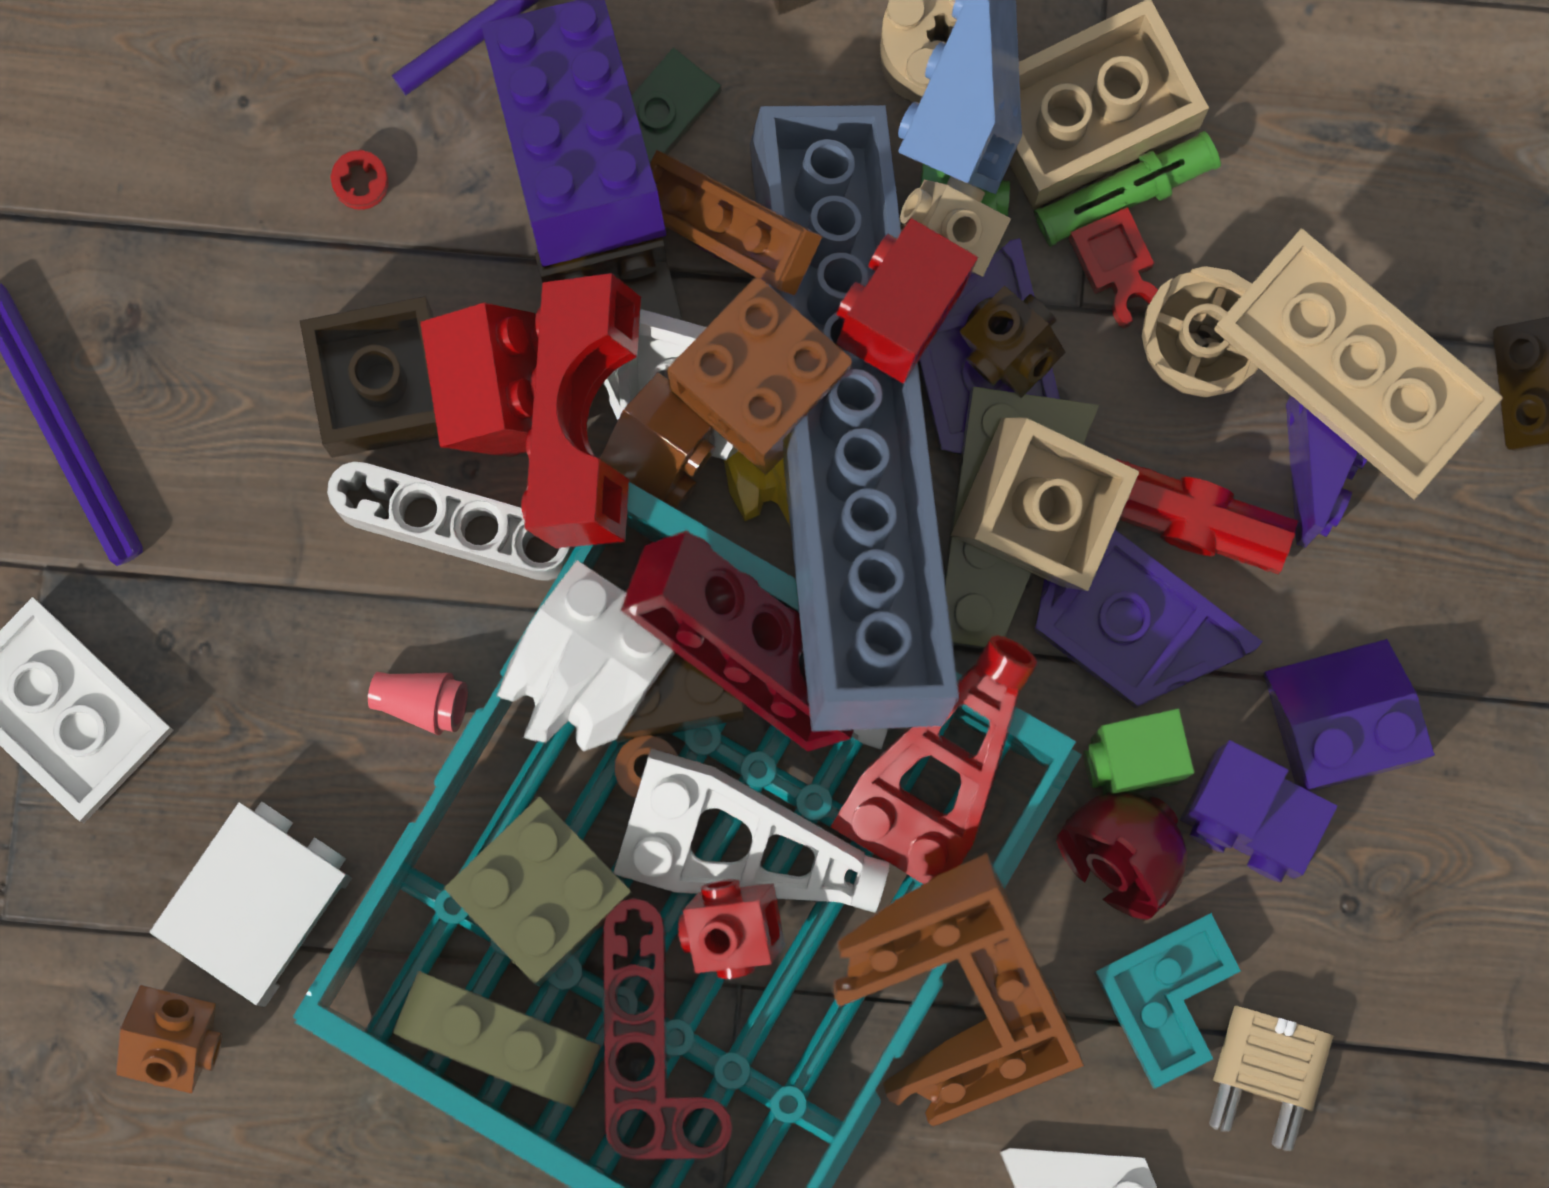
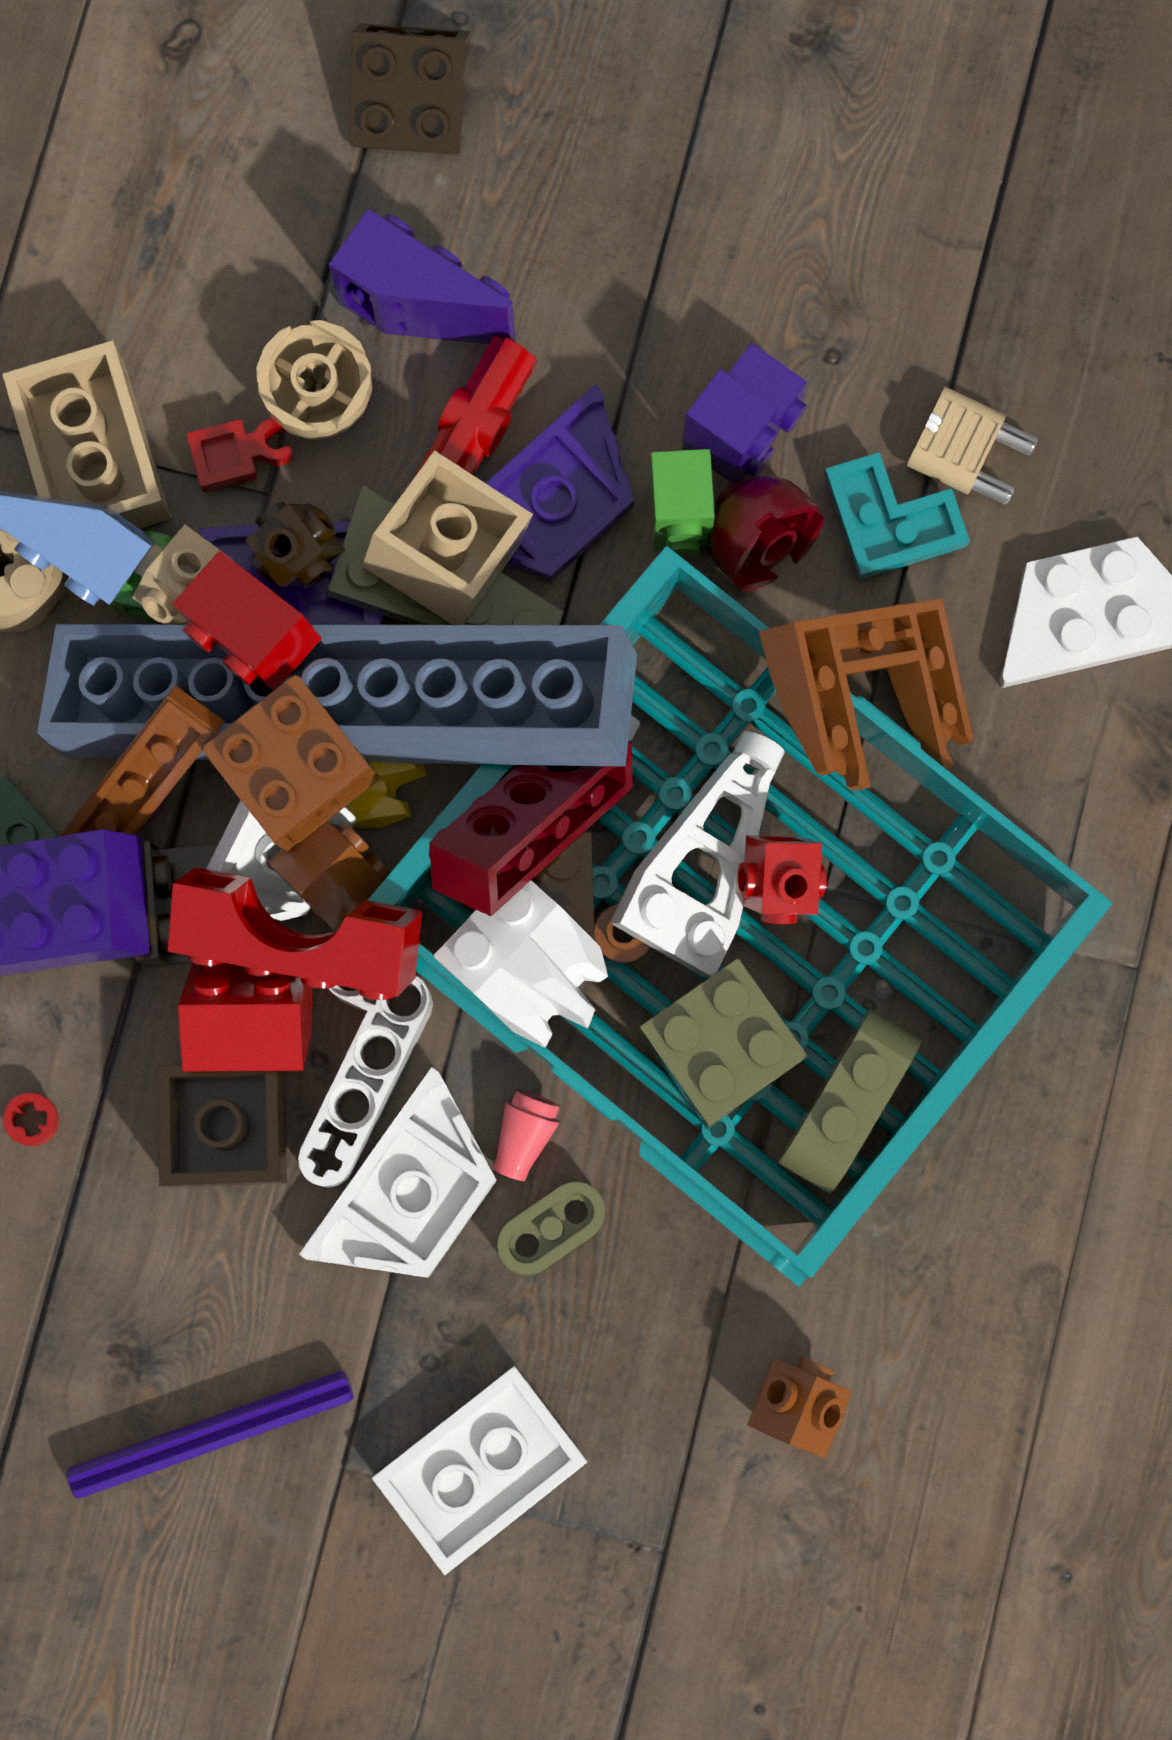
camera: 80 degrees left, 0 degrees up
(251, 901) = (686, 1311): white panel -> none
(323, 745) = (551, 1228): none -> olive plate
(340, 587) = (409, 1191): none -> white wing
(651, 1030) = (858, 964): dark red beam -> none
(904, 827) = (716, 711): plate -> none
(1193, 156) = (152, 371): bright green pin -> none
(1348, 716) = (671, 324): dark purple slope -> none
(1357, 363) = (372, 243): tan plate -> none

